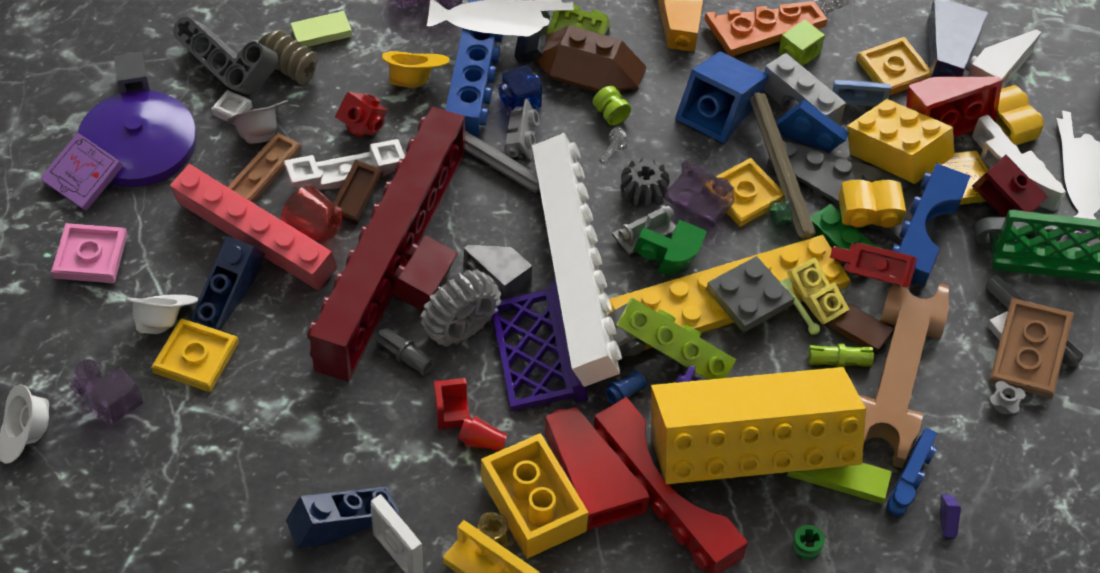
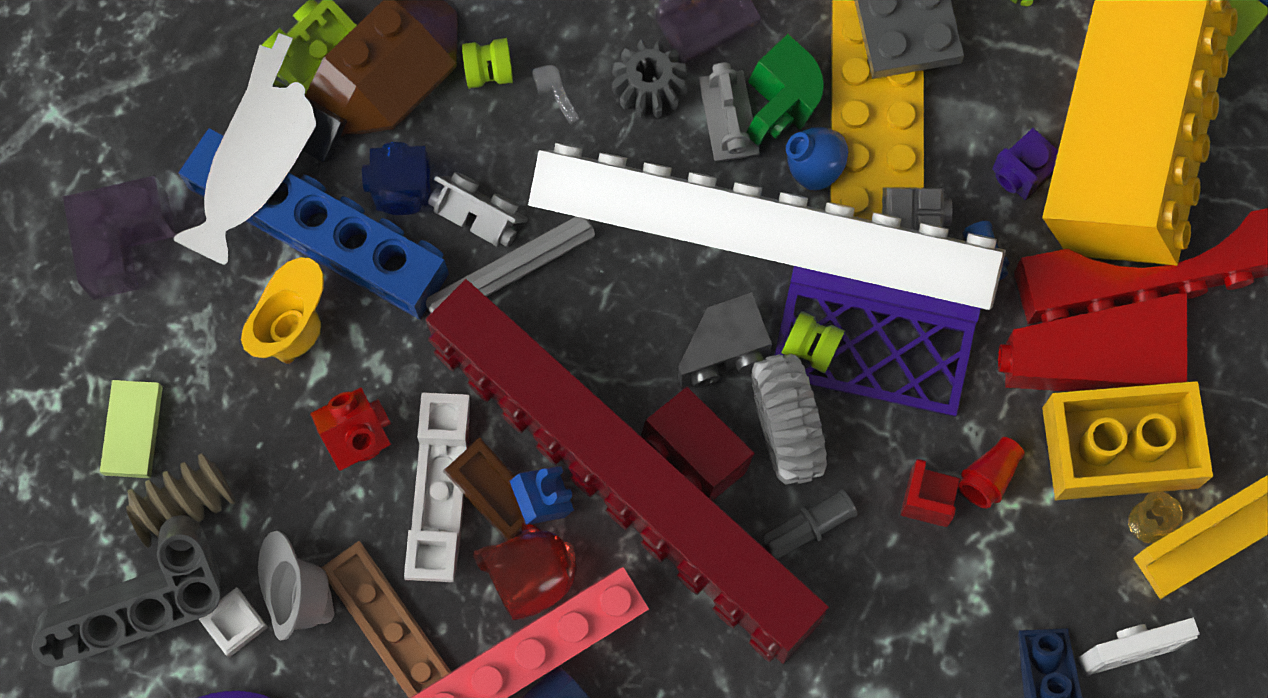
camera: 60 degrees left, 20 degrees up
(359, 211) = (542, 495): none -> blue tile
(516, 307) = (802, 339): none -> lime wheel
(639, 274) = (816, 157): none -> blue brick
(674, 341) = (957, 155): lime bracket -> none

